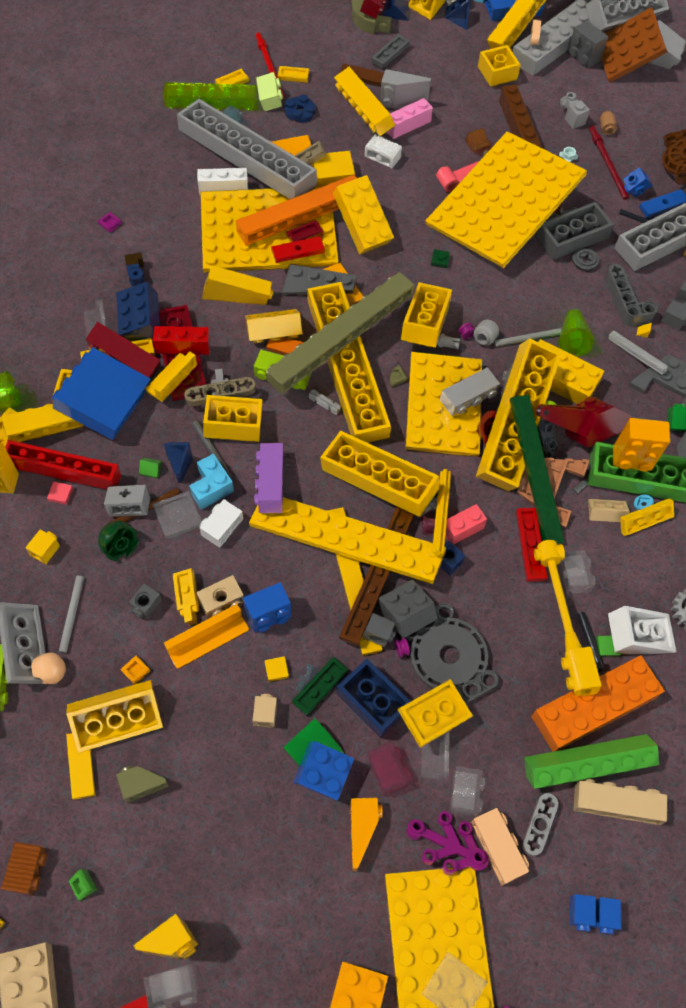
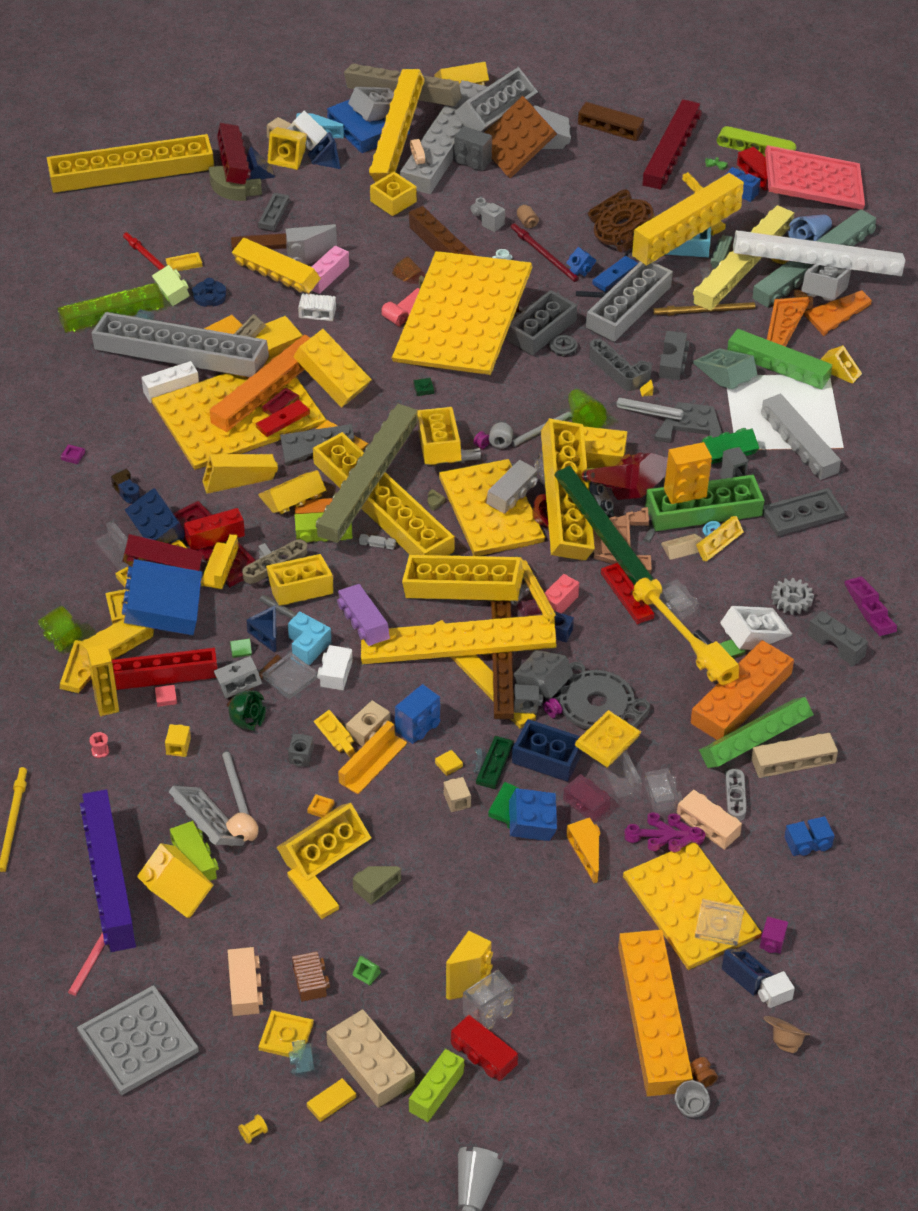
camera: 20 degrees left, 15 degrees down
(237, 77) = (126, 282): yellow tile -> none

